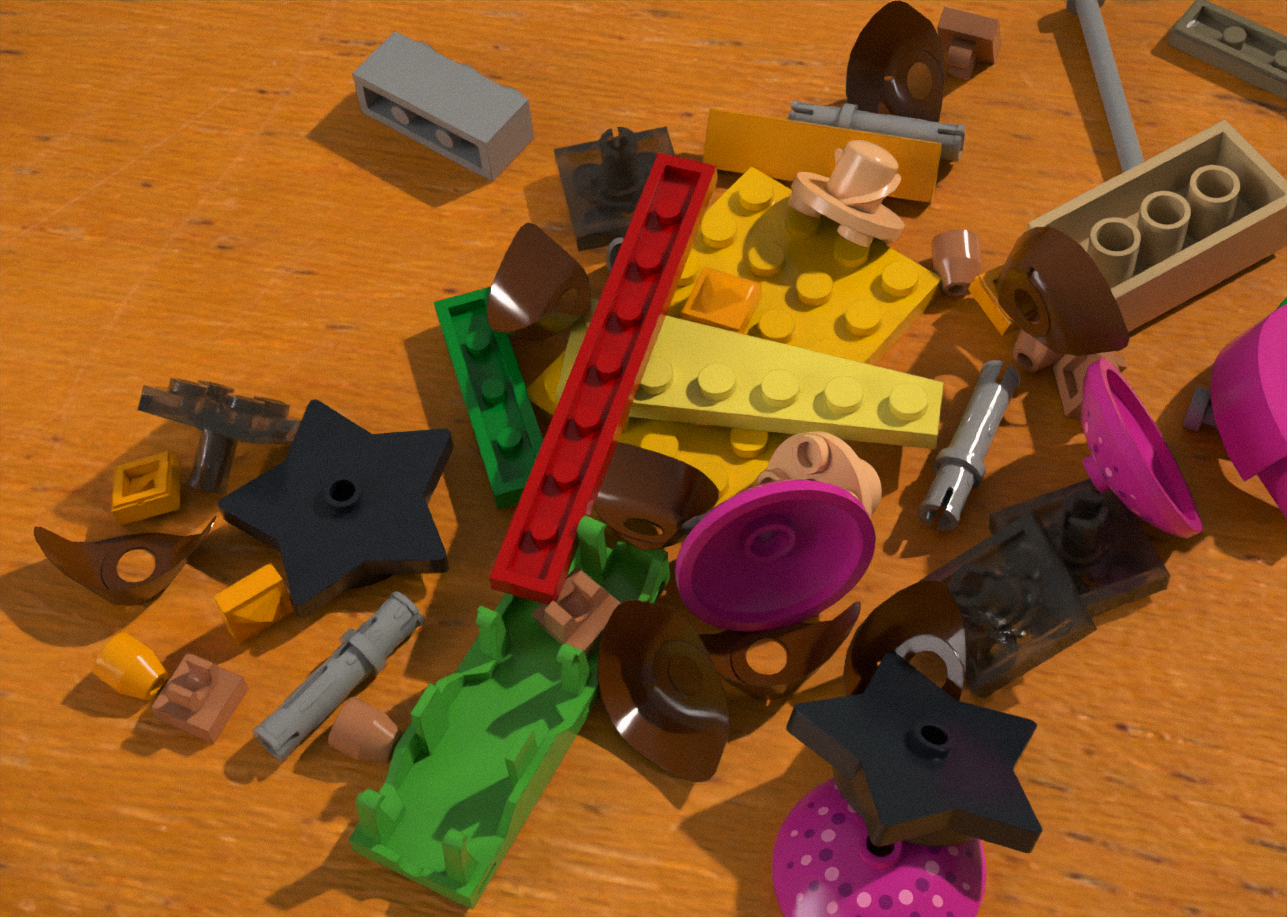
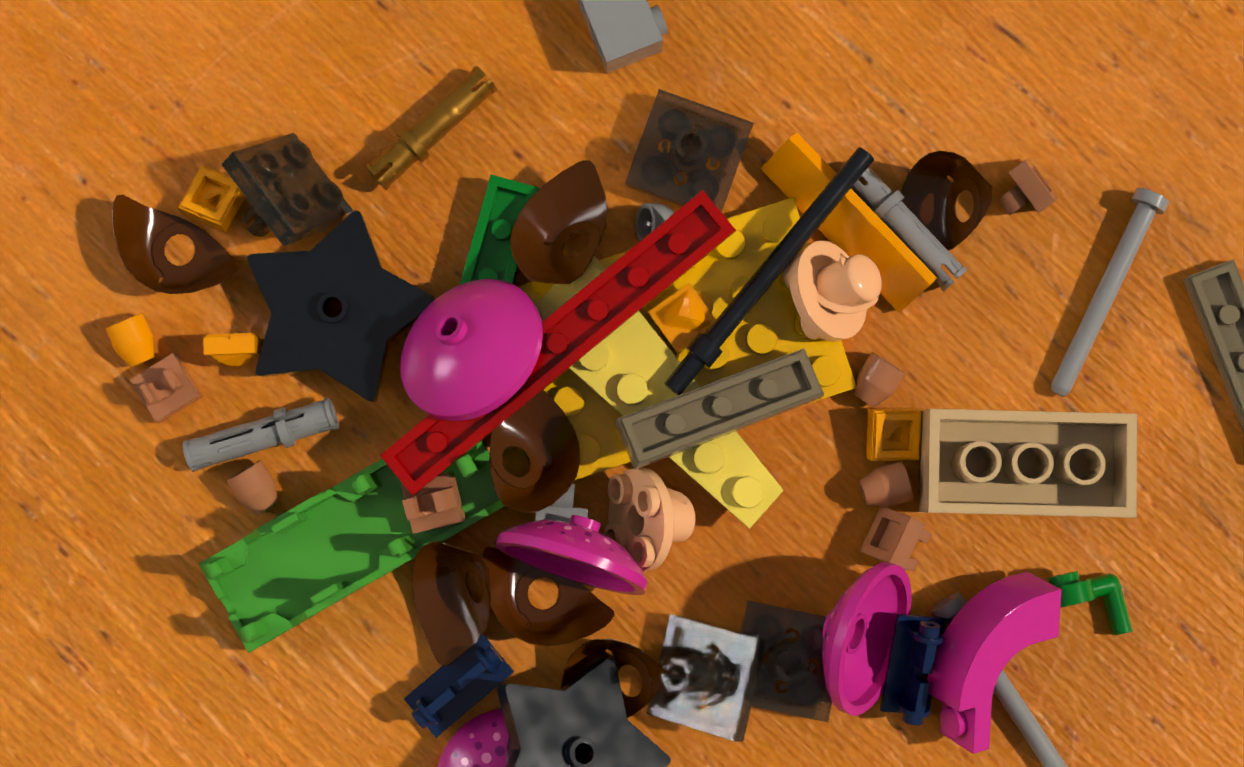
camera: 25 degrees right, 30 degrees up
(335, 324) = (430, 128): none -> pearl gold pin
(520, 427) = (471, 350): none -> dark pink dish
(741, 794) = (458, 687): none -> dark blue hinge
(765, 298) = (706, 348): none -> black bar
(817, 345) = (718, 408): none -> dark tan tile
(961, 464) = (777, 533): light grey pin -> none
(1069, 291) = (908, 488): reddish brown piece -> none
(1215, 485) = (909, 665): none -> dark blue hinge

